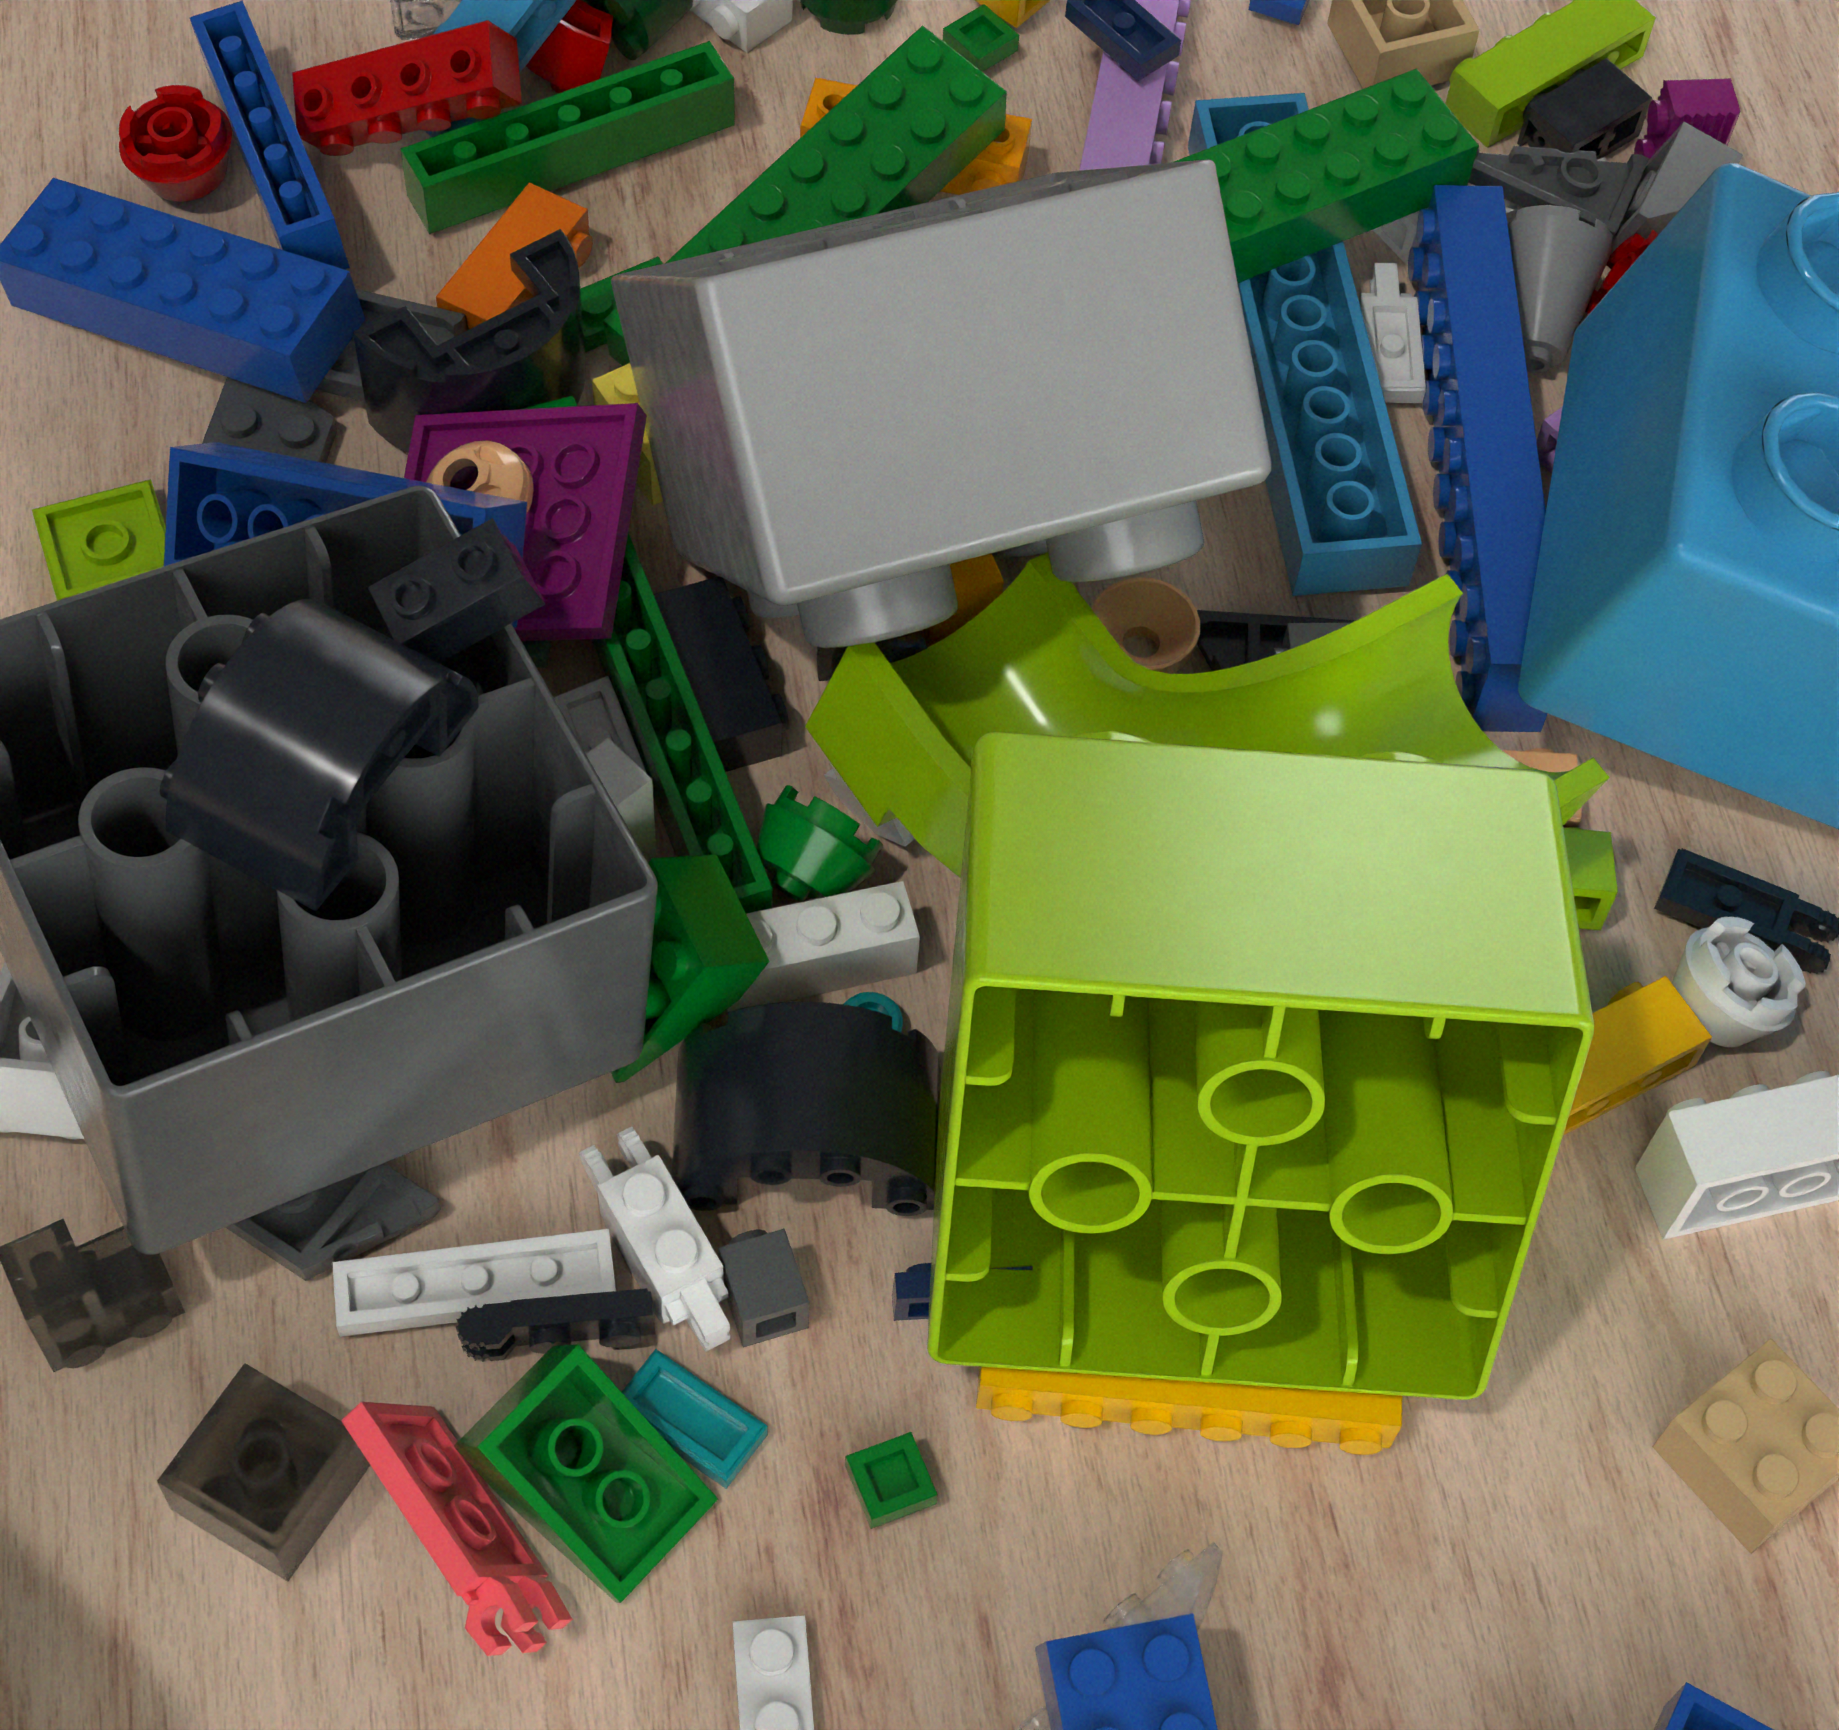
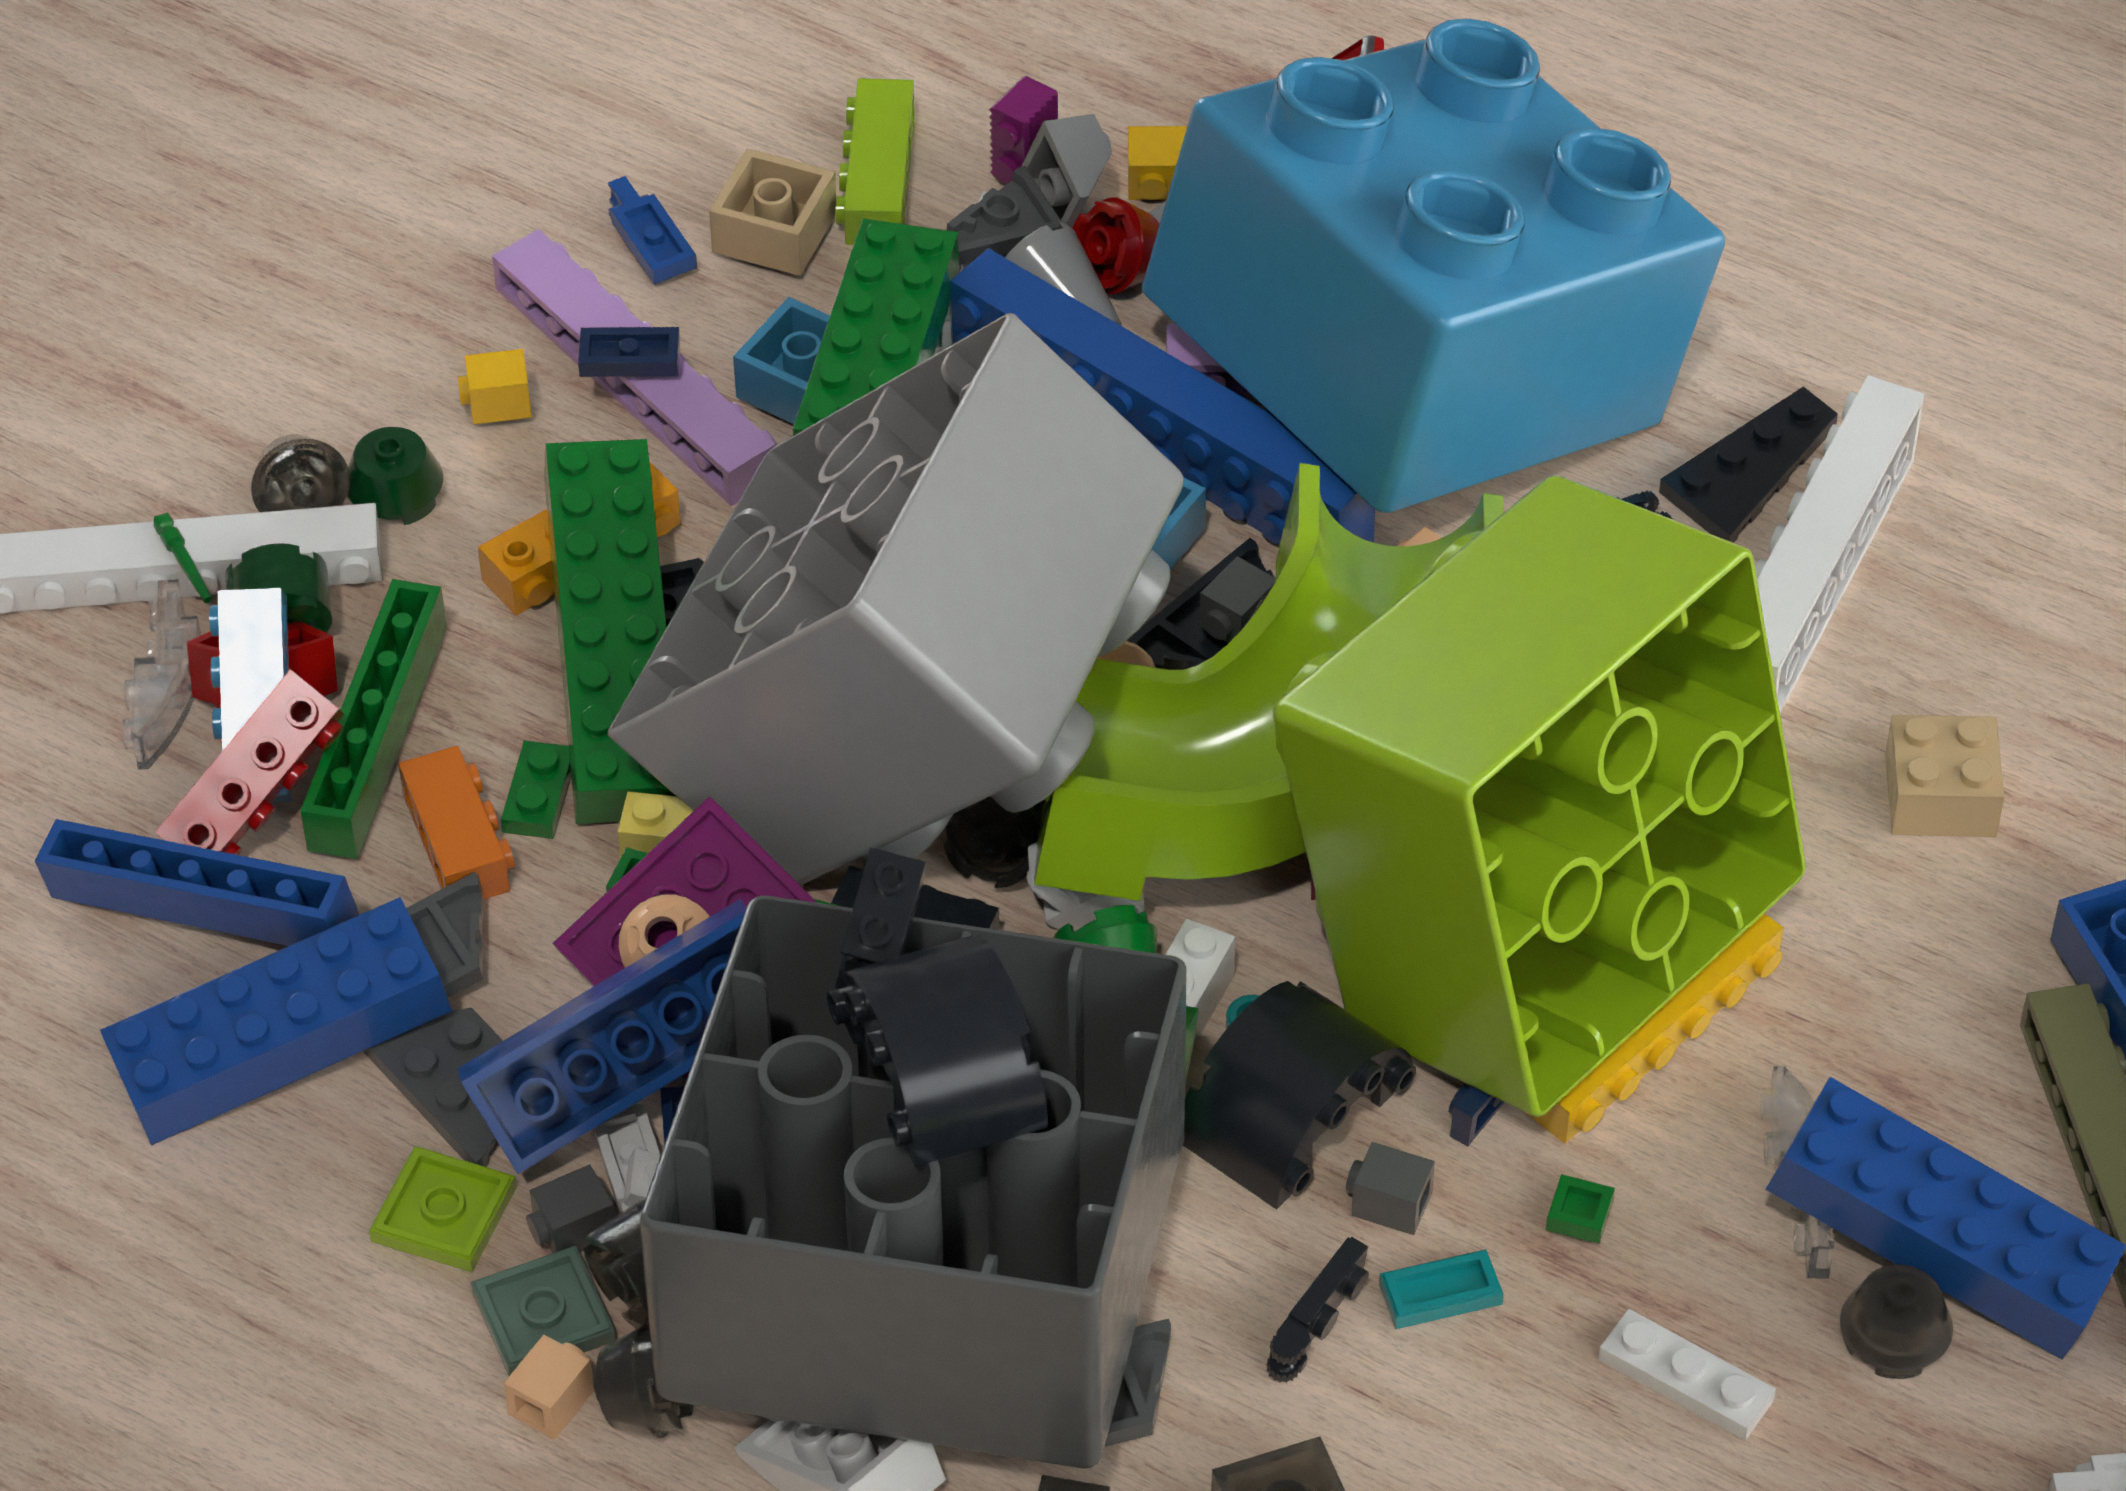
camera: 45 degrees left, 10 degrees down
(176, 143) = (135, 943): red cone -> none
(442, 1283) = (1240, 1341): white plate -> none
(458, 1524) = (1422, 1432): coral tile -> none
(499, 365) = (564, 839): black cylinder -> none
(587, 1470) = (1428, 1356): green slope -> none
(660, 1239) = (1307, 1215): white hinge -> none
(981, 38) = (524, 441): green plate -> none
(1589, 112) = (943, 174): black hinge -> none

